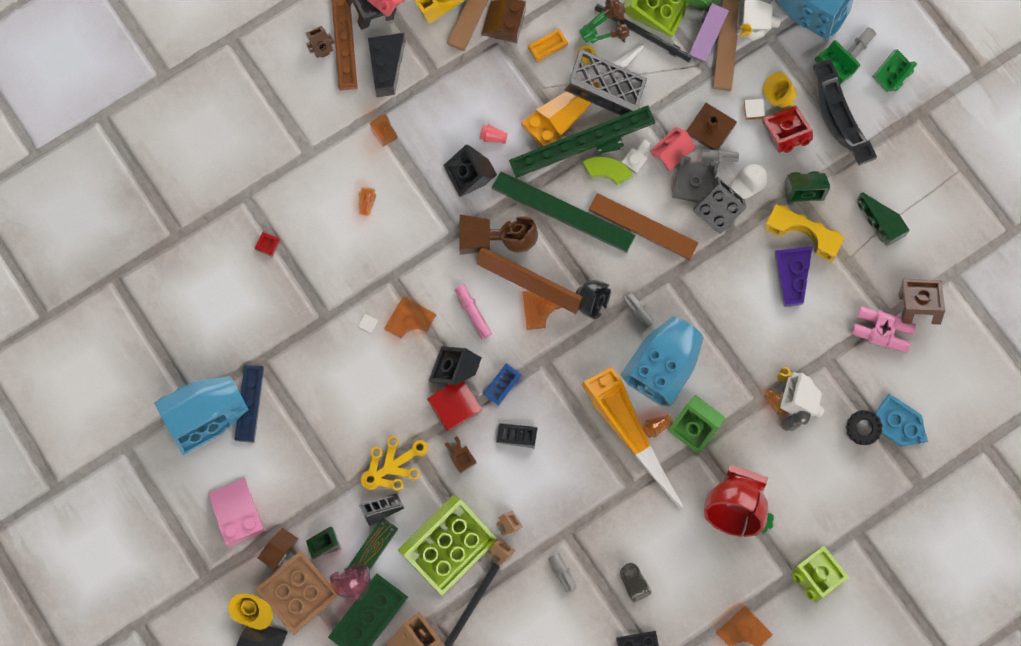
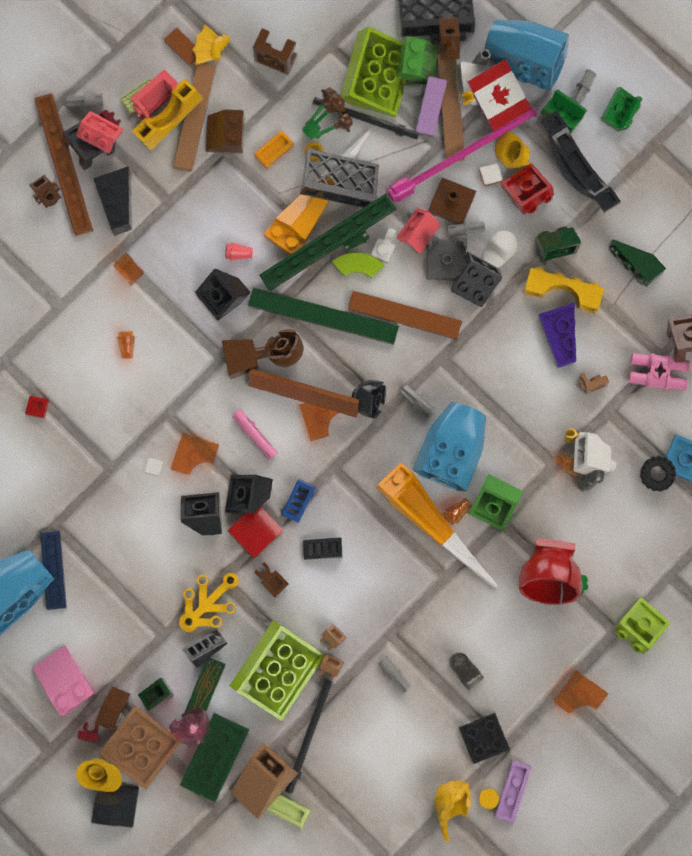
camera: 10 degrees left, 5 degrees up
(249, 571) = (89, 736): none -> dark red tile
(406, 377) = (202, 513): none -> black slope
(779, 49) = (504, 109): none -> flag
(818, 329) = (596, 383): none -> medium nougat bracket

